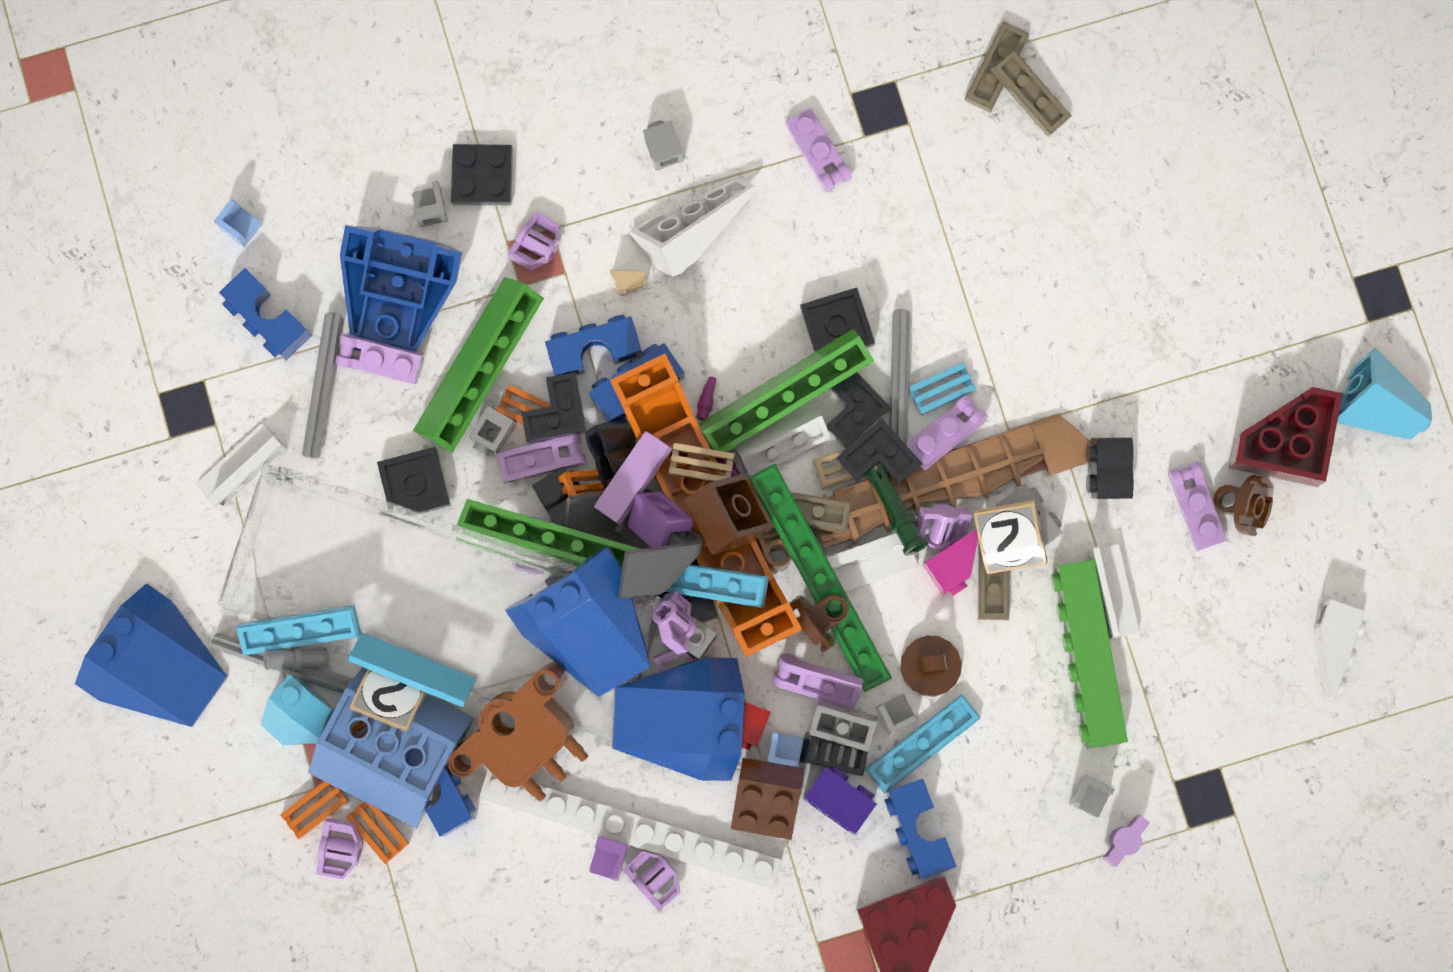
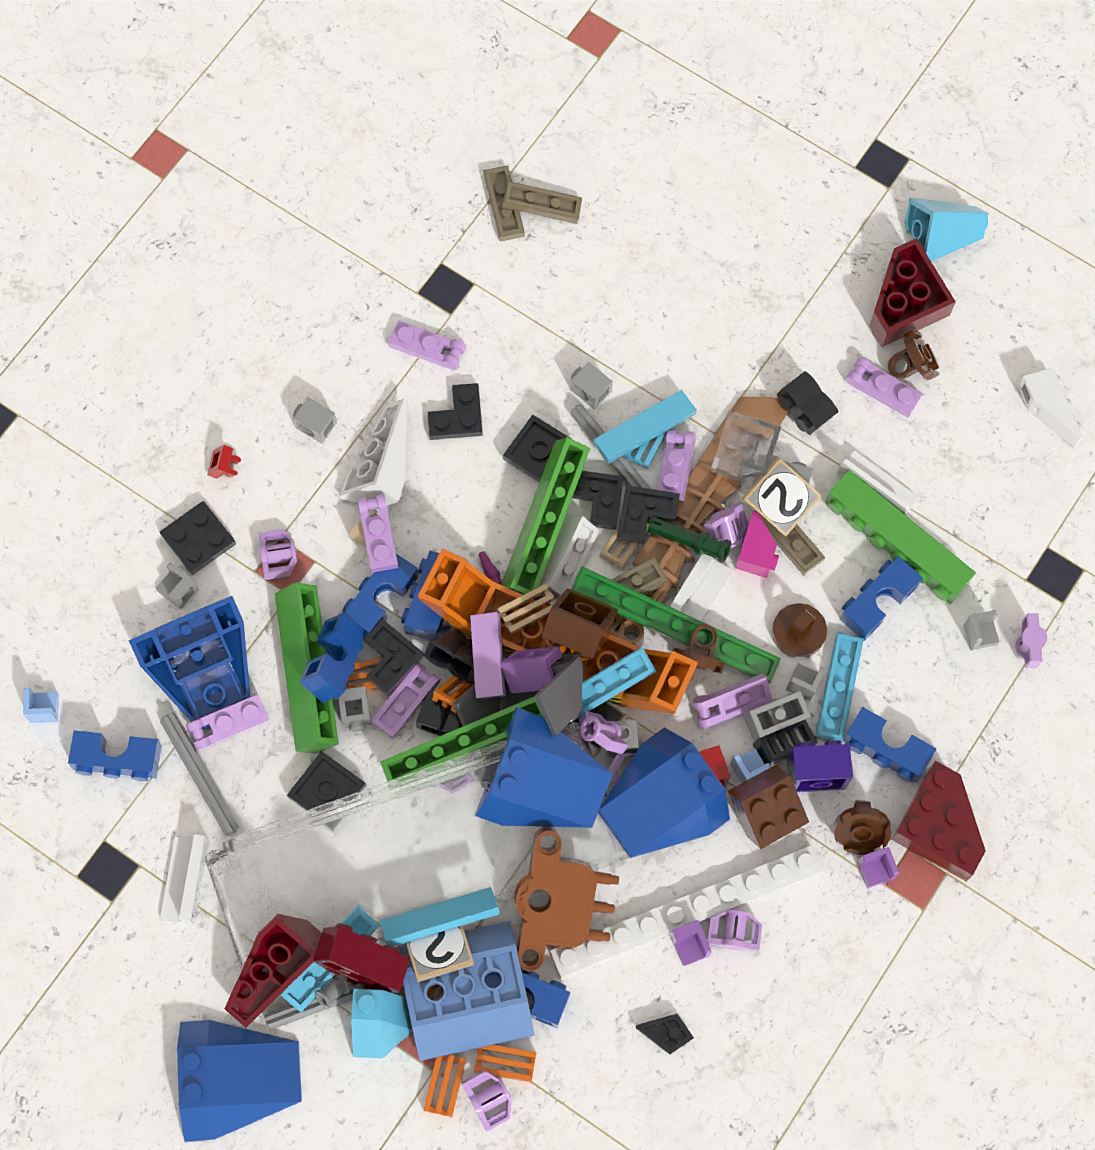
camera: 45 degrees left, 10 degrees down
(247, 600) = (275, 961): none -> dark red wedge
(315, 655) = (361, 959): none -> dark red wedge
(525, 367) = (329, 673): none -> blue arch
(527, 915) = (666, 1032): none -> black piece
(552, 121) = (220, 462): none -> red tile
(630, 293) = (378, 534): none -> lavender plate
(797, 243) = (461, 421): none -> black plate
(819, 925) = (878, 867): none -> medium lavender panel
(833, 881) = (862, 828): none -> reddish brown tile
(931, 299) = (590, 385): none -> light grey brick
(946, 376) = (644, 426): none -> medium azure tile
(1015, 466) = (745, 446): none -> clear slope
(1052, 689) = (895, 580): none -> blue arch

